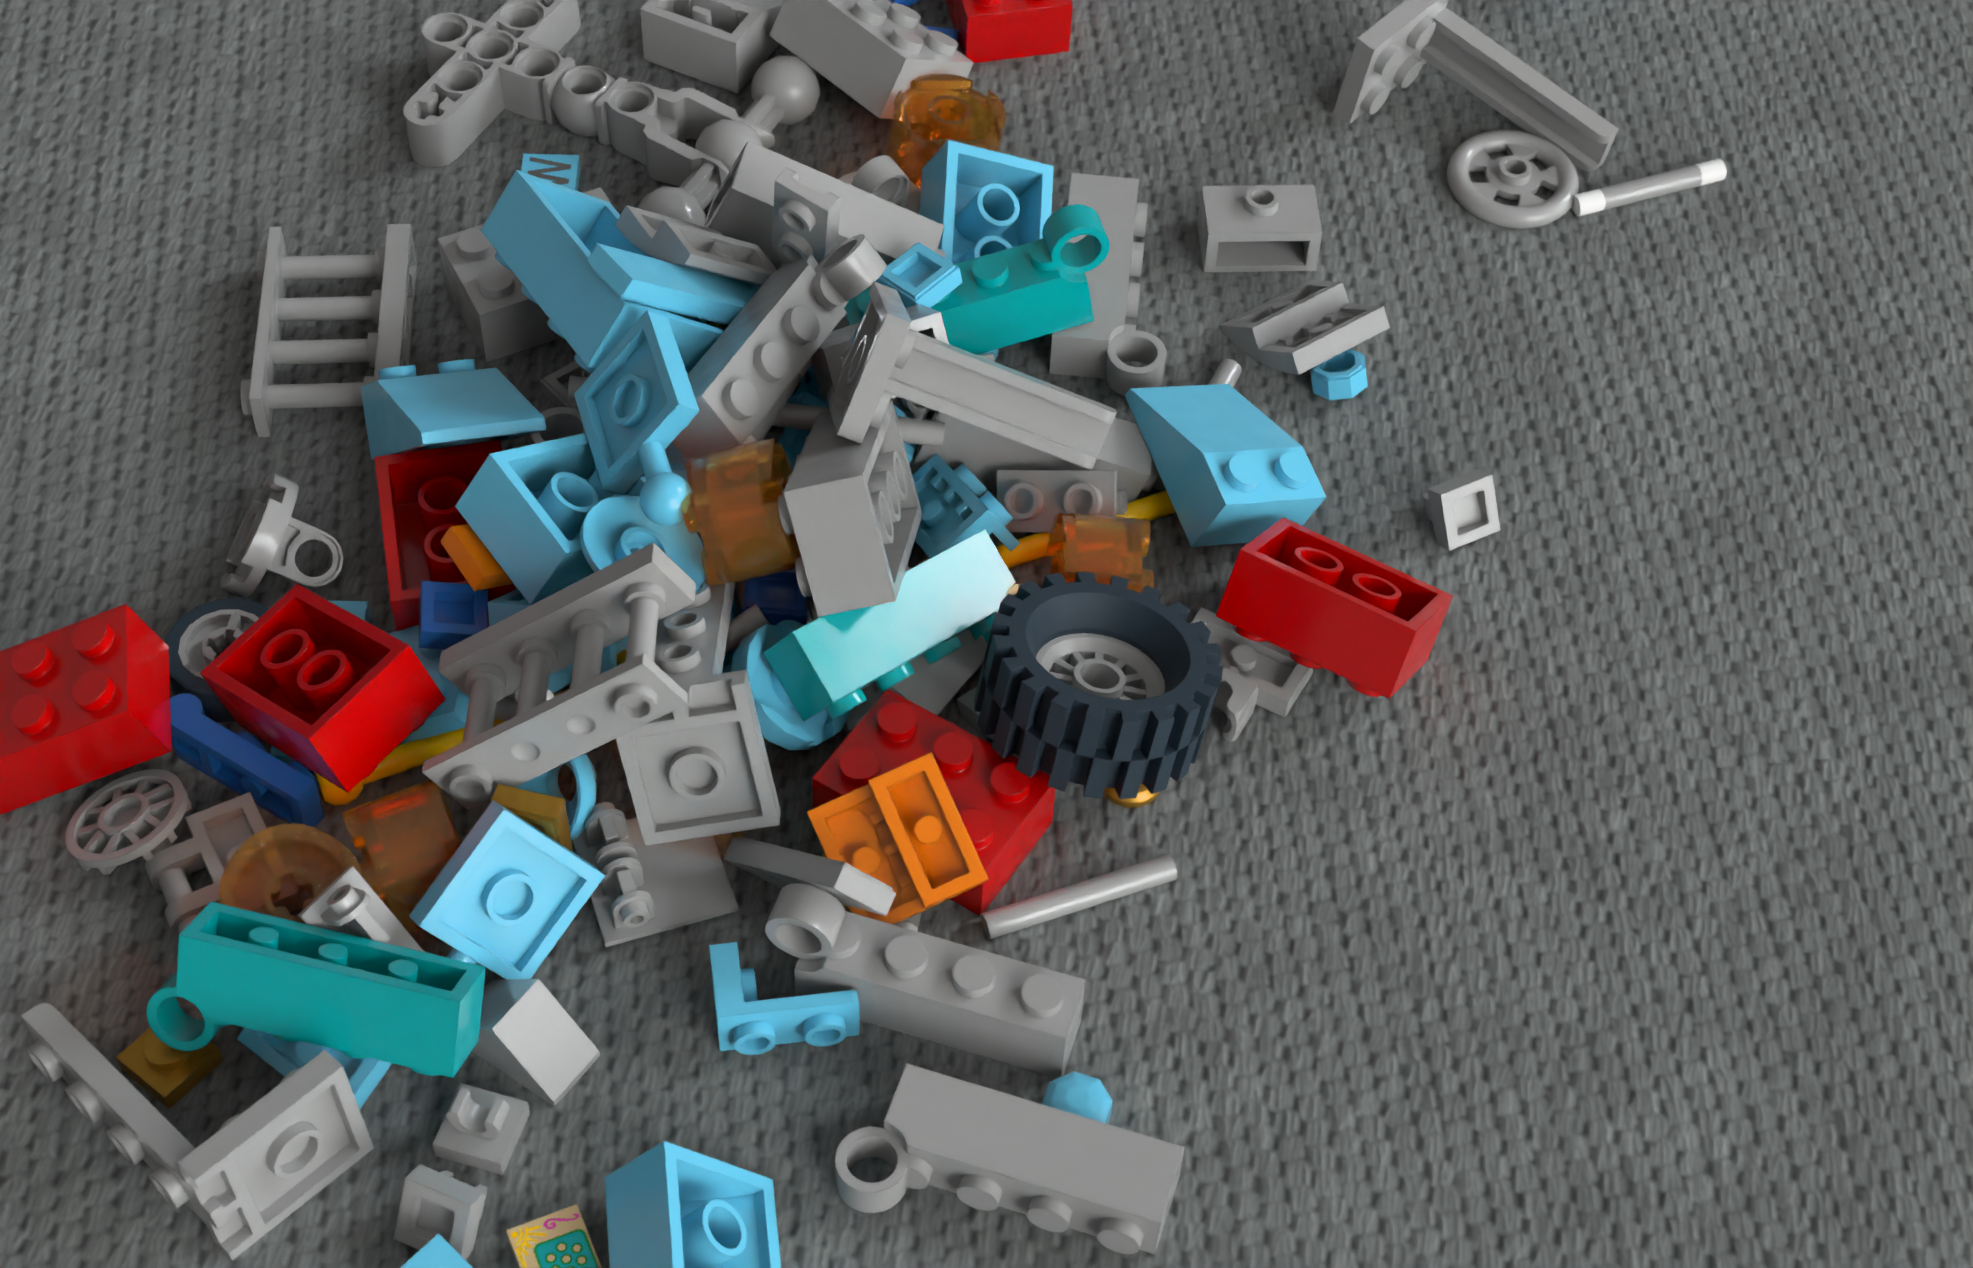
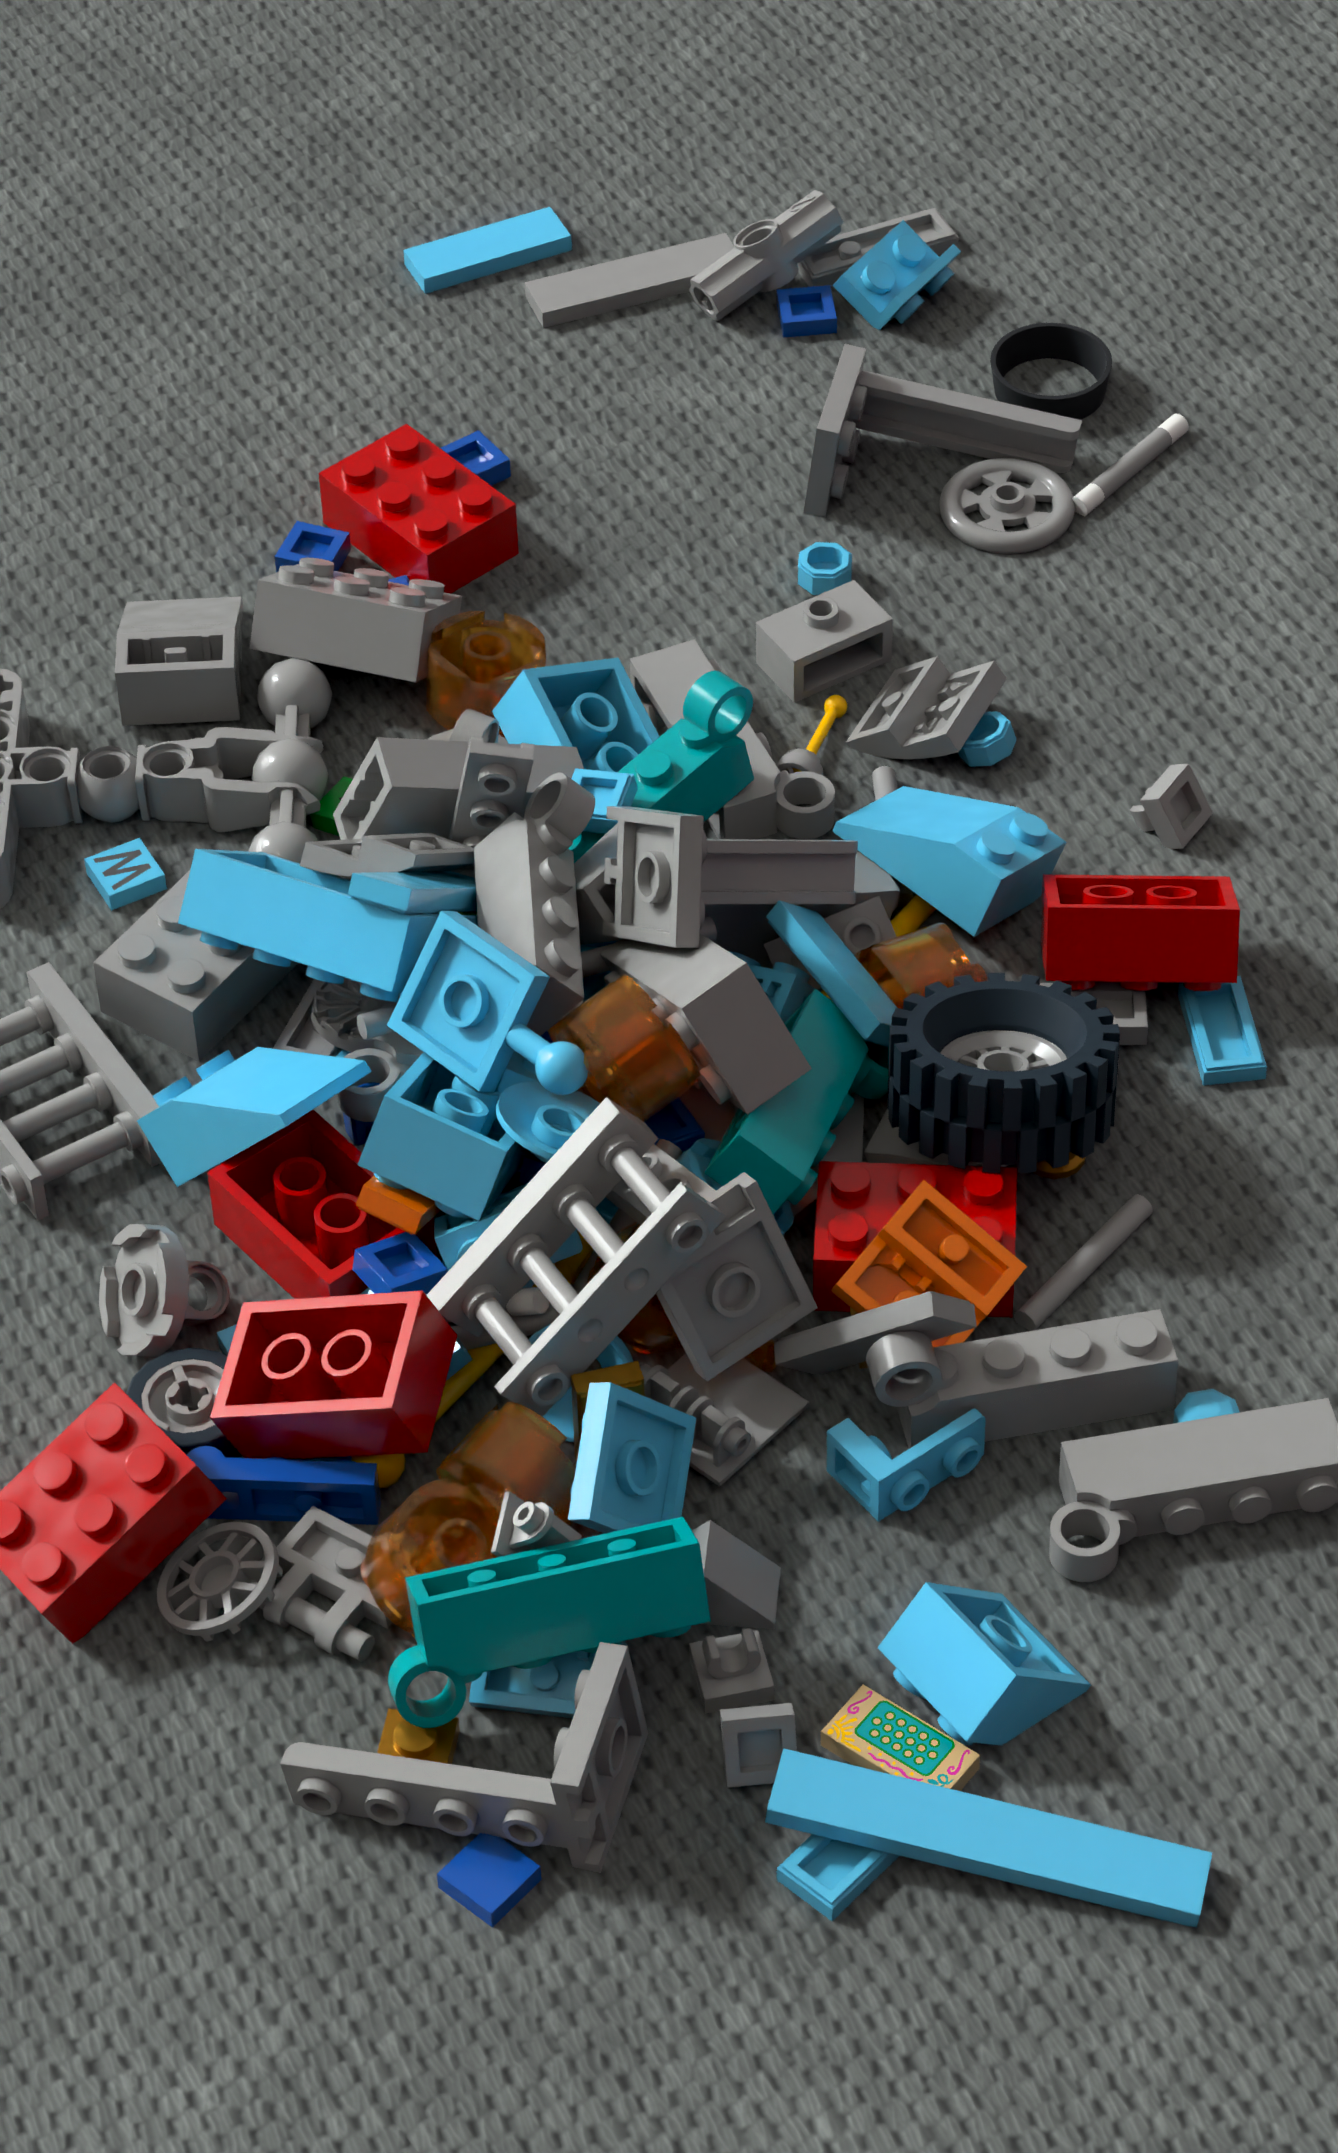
camera: 25 degrees left, 5 degrees down
(130, 1215) = (489, 1877): none -> blue tile
(1023, 516) = (835, 970): none -> medium azure tile
(1165, 326) = (806, 759): none -> hinge
(1310, 165) = (824, 567): none -> medium azure tile
(1362, 742) = (1223, 1034): none -> medium azure tile
(1638, 49) = (1052, 342): none -> black tyre

